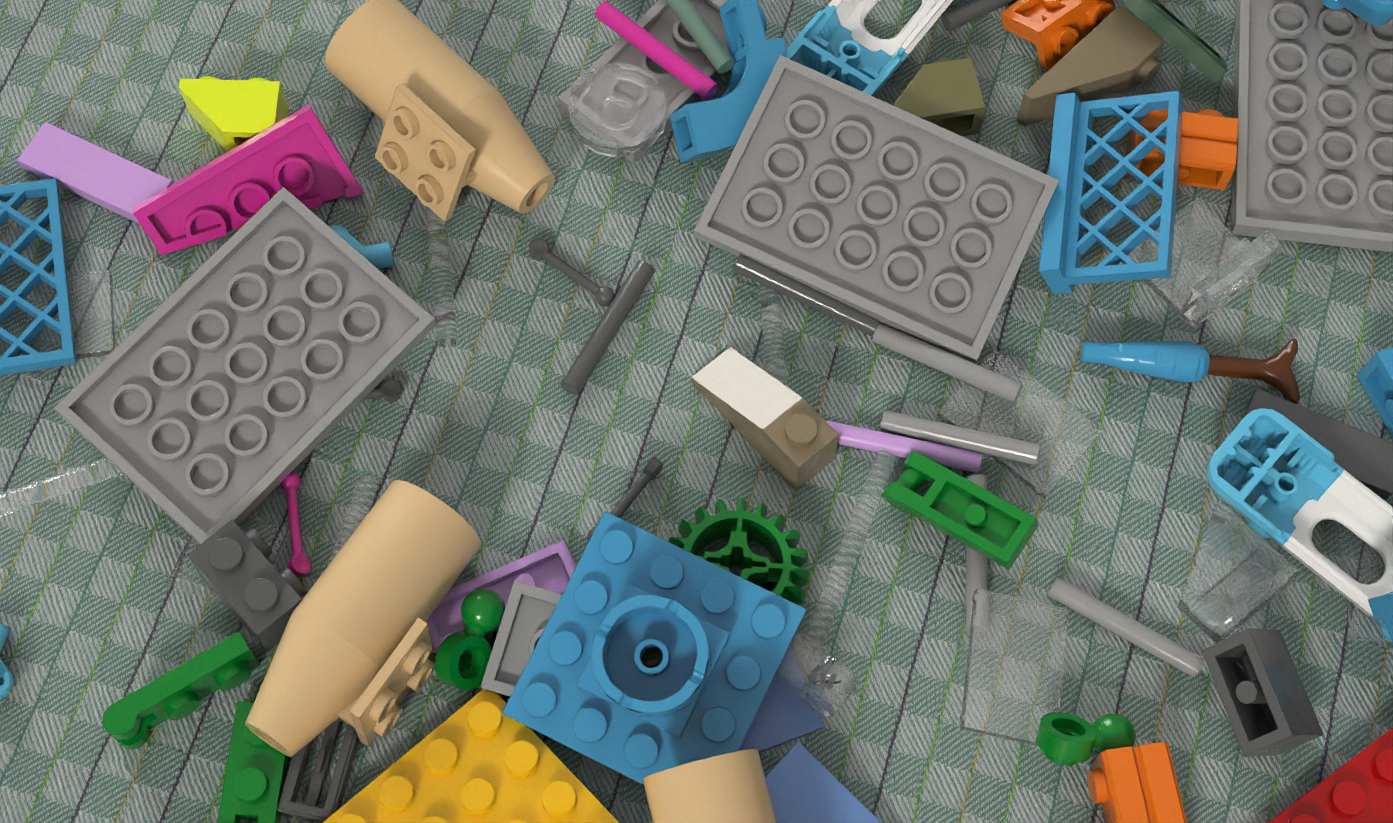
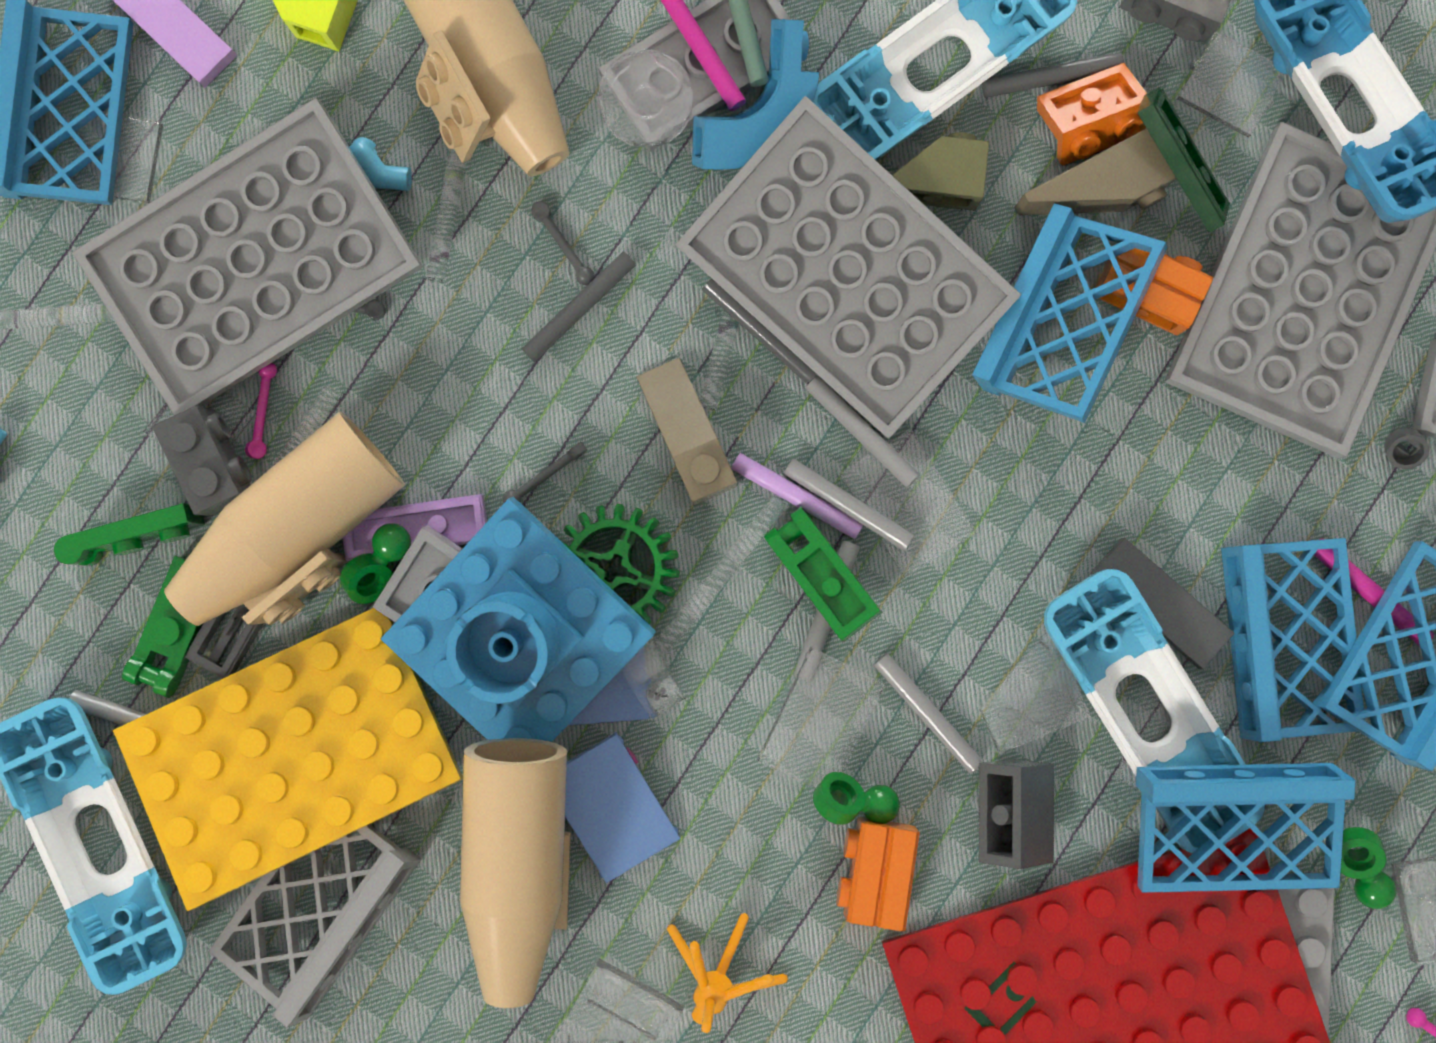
camera: 20 degrees right, 20 degrees up
(240, 182) = (328, 64): dark pink wing -> none
(1192, 362) = (1078, 496): dark azure piece -> none
(1206, 263) = (1129, 406): clear bracket -> none

